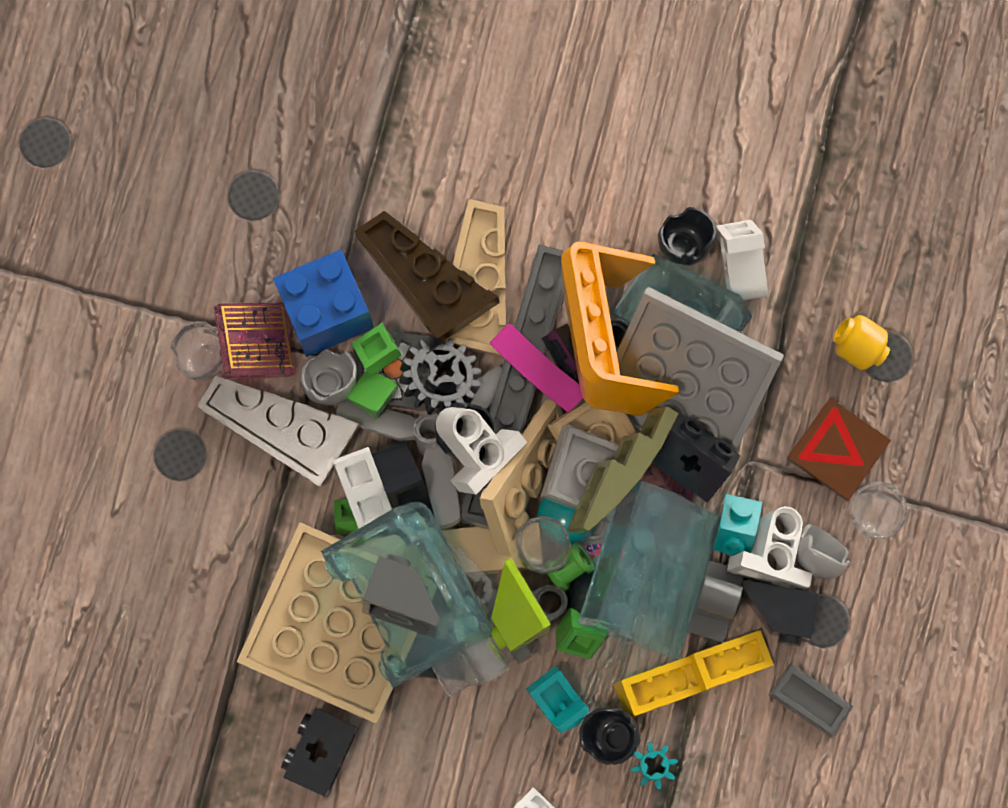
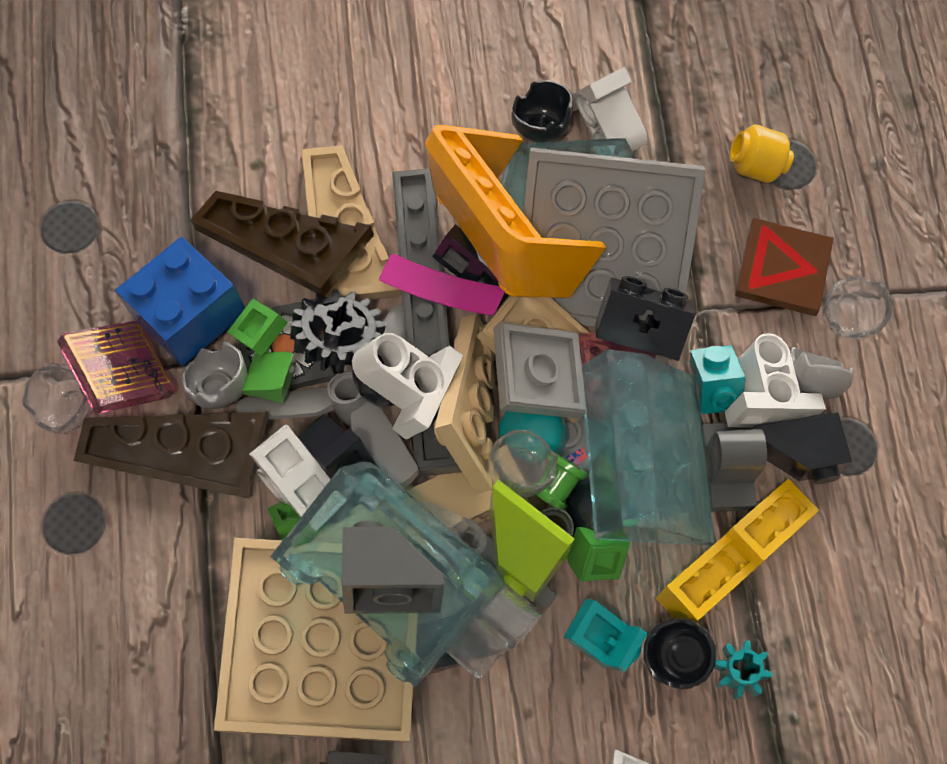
camera: 25 degrees left, 10 degrees down
(616, 477) = (576, 357): olive slope -> none
(810, 700) = (875, 534): dark grey tile -> none

